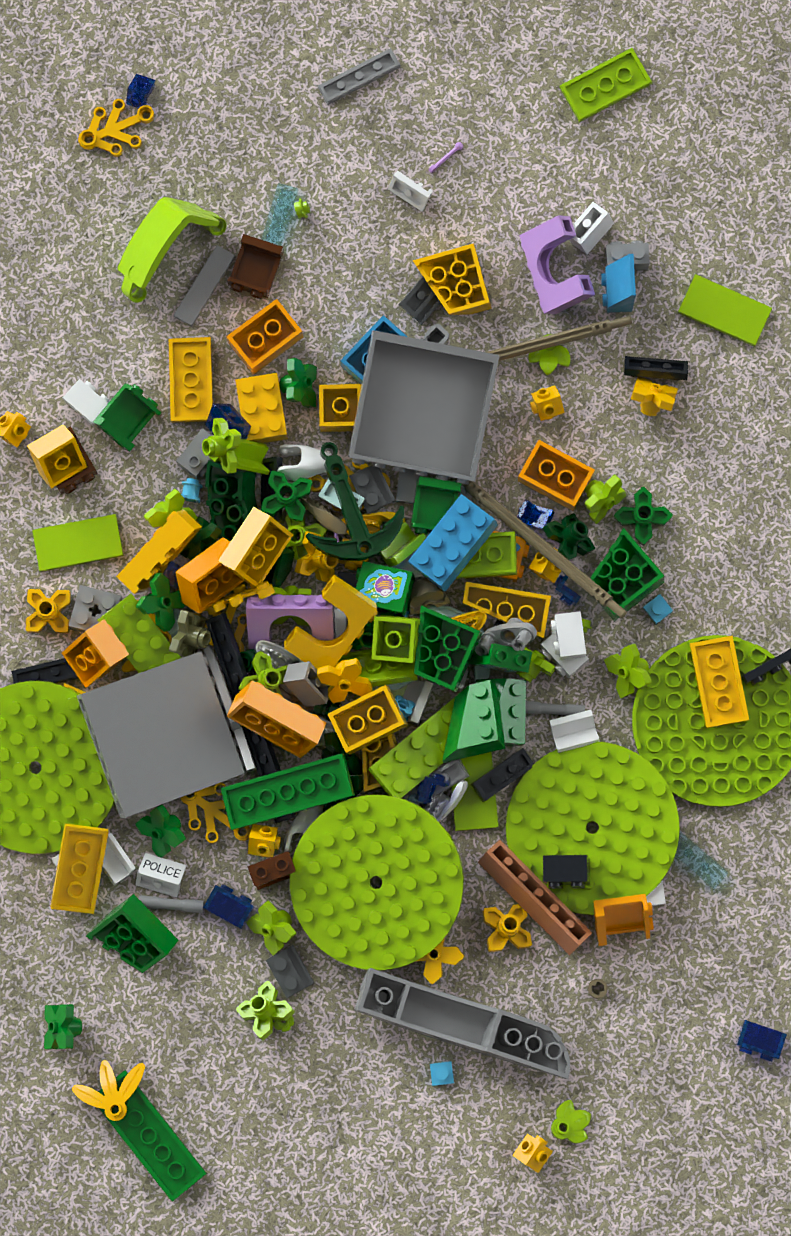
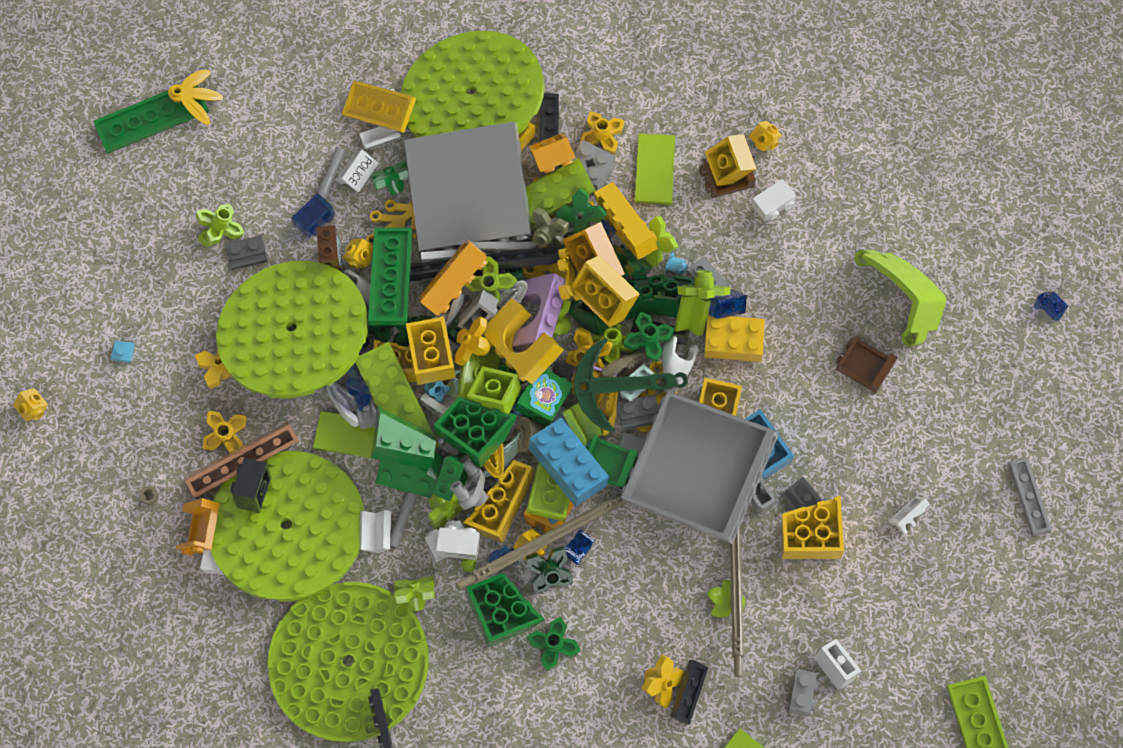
camera: 100 degrees right, 10 degrees down
(61, 1026) = (256, 69): green plant -> none
(114, 129) = (1021, 276): yellow plant -> none
(126, 415) = (753, 226): green panel -> none
(134, 934) = (314, 140): green wedge -> none
(190, 379) = (776, 287): yellow plate -> none
(204, 286) = (859, 319): light grey tile -> none
(264, 336) = (799, 354): light orange brick -> none
(273, 926) = (285, 244): lime plant -> none
(280, 214) = (910, 396): clear light blue tile -> none
(298, 382) = (750, 372): green plant -> none
(302, 208) = (912, 415): lime plate -> none
(458, 146) = (944, 569): lavender hinge -> none
(463, 1023) = (153, 373): light grey slope -> none
(502, 775) = (355, 460): black plate -> none
(538, 246) = (827, 612): lavender arch -> none
(546, 403) = (679, 583): yellow brick -> none
(556, 475) = (610, 573): light orange brick -> none
(574, 1122) = (45, 447): lime plate -> none
(603, 497) = (578, 609): lime plant -> none
(619, 285) = (774, 677): dark azure slope -> none
(658, 609) = (465, 635): medium azure plate -> none
(699, 862) = (230, 611): clear light blue tile -> none
(719, 682) = (380, 667): yellow plate -> none
(760, 1040) = (57, 621): clear blue brick -> none

